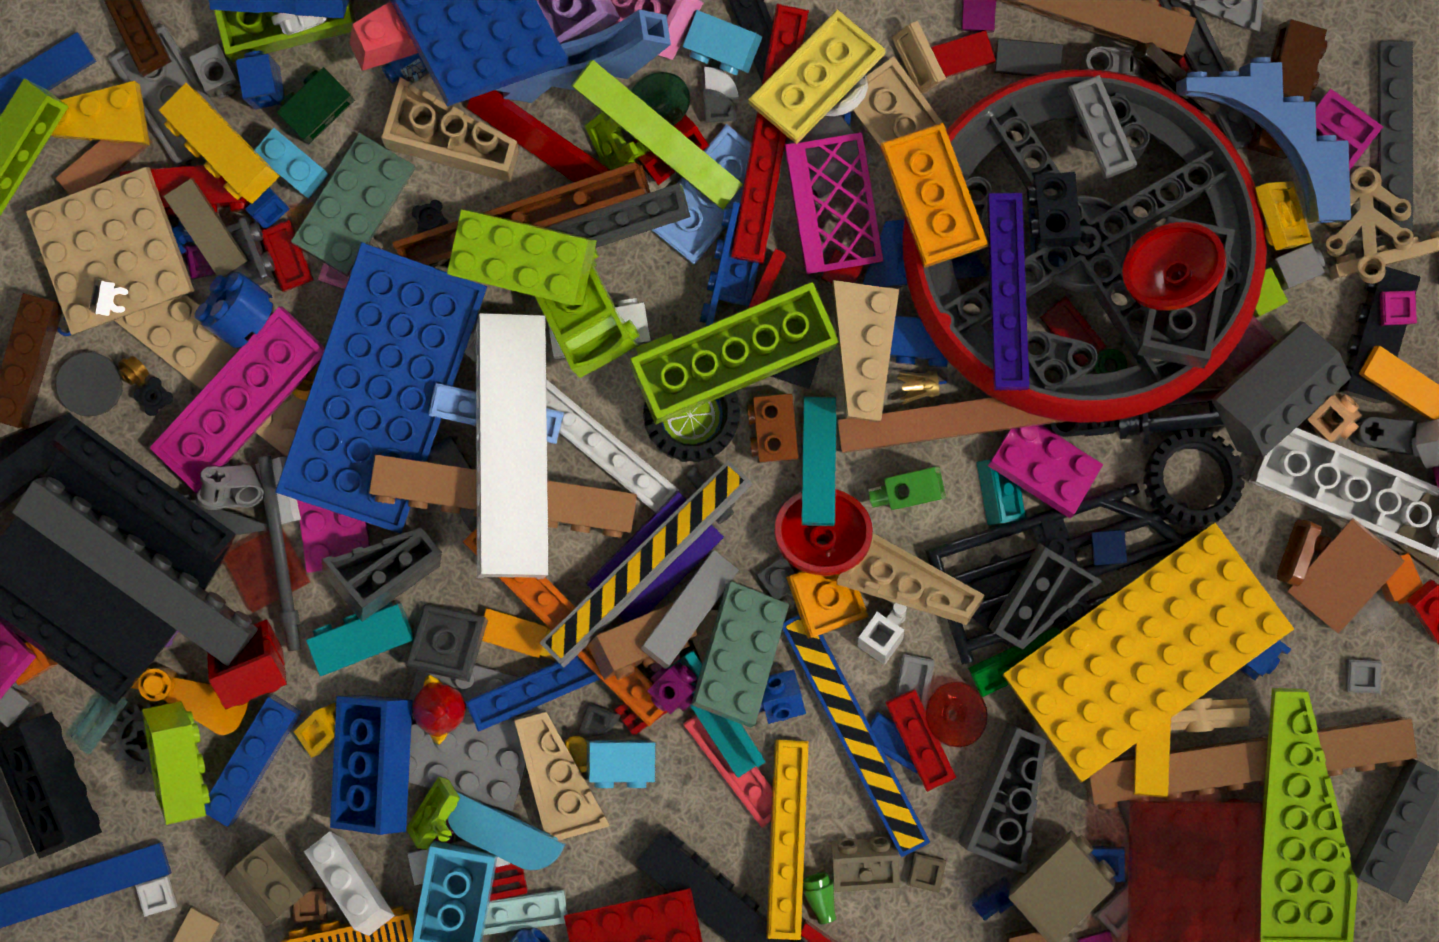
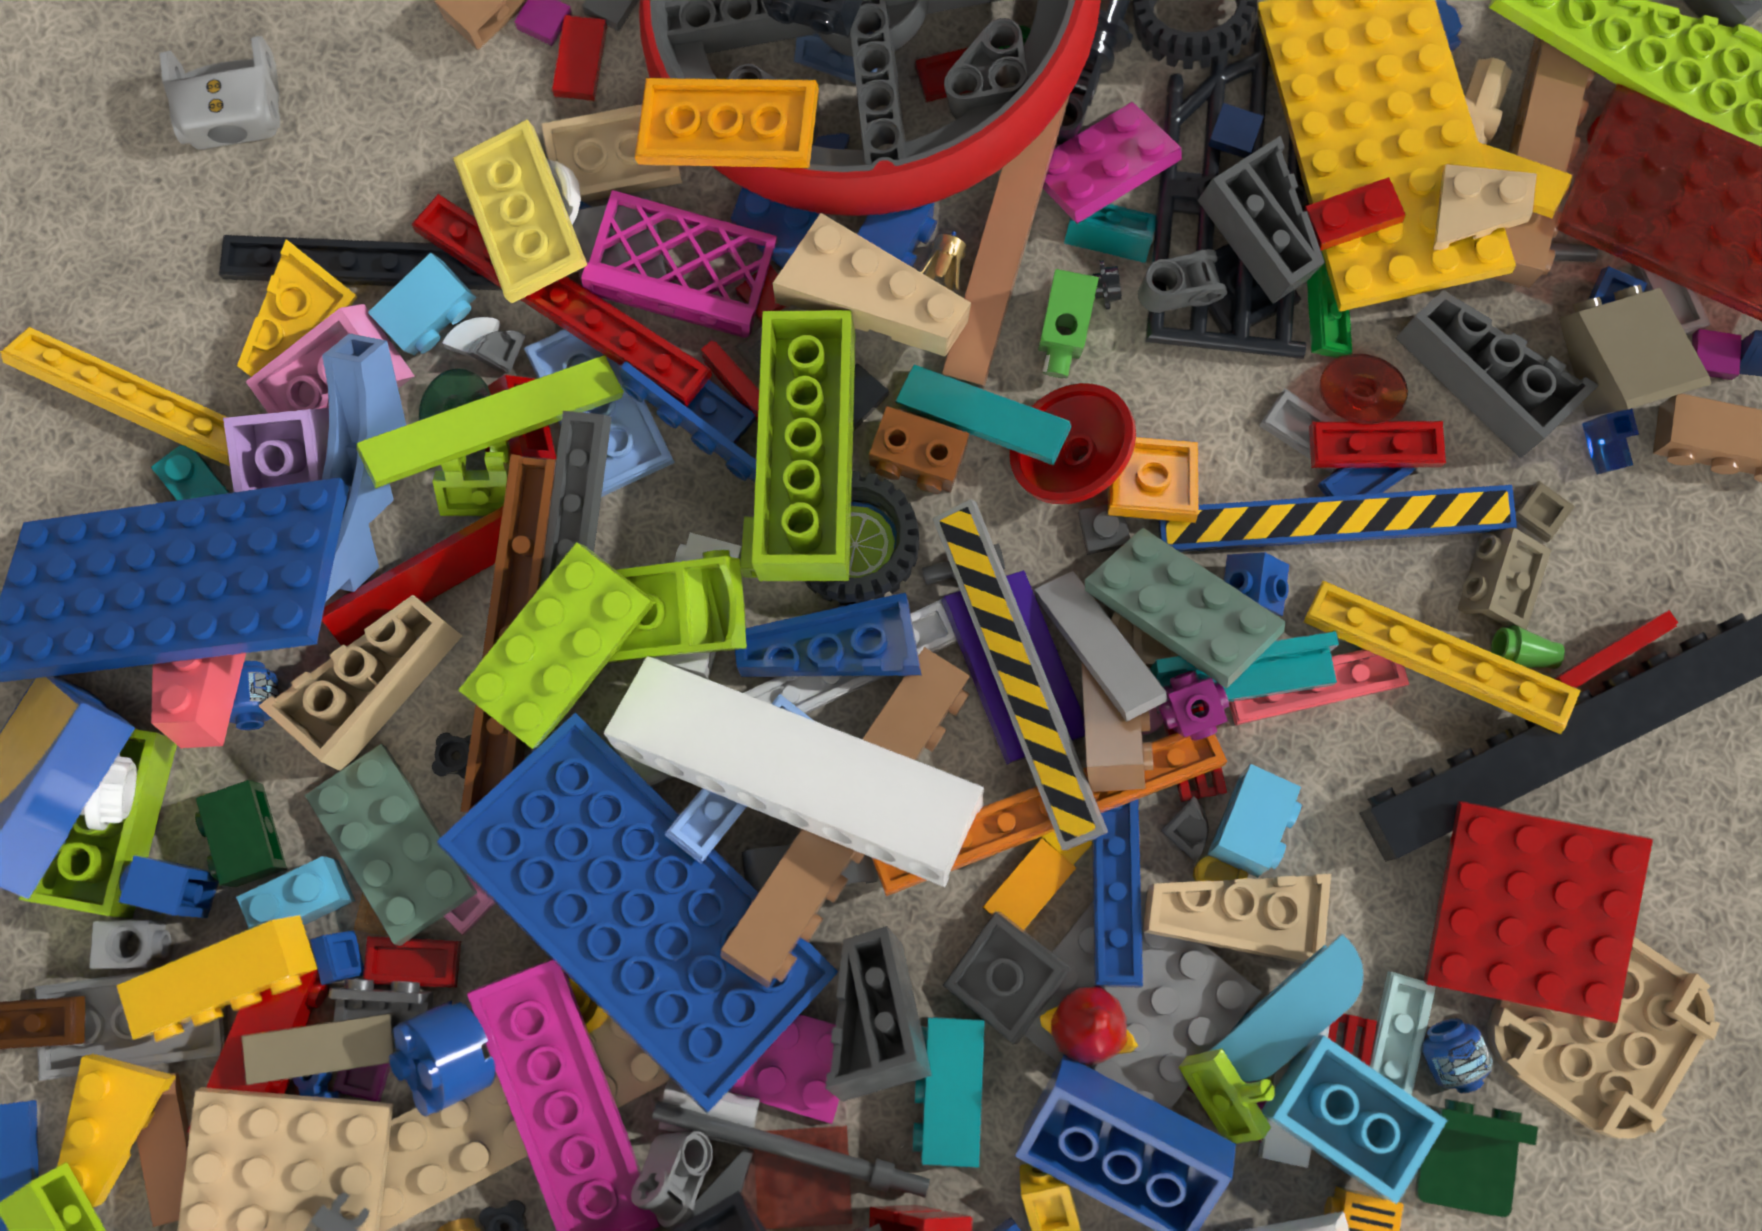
camera: 65 degrees left, 10 degrees down
(615, 434) = (840, 641): none -> blue wing
(883, 634) = (1230, 428): white brick -> none
(909, 581) = (1183, 364): tan wing -> none
(918, 57) = (556, 97): tan tile -> none
(954, 506) = (1108, 284): none -> black plate
(975, 559) = (1190, 281): none -> dark grey piece
(1008, 291) = (887, 79): dark purple plate -> none
(1070, 655) = (1355, 213): none -> red plate
(1114, 739) = (1481, 201): none -> tan wing

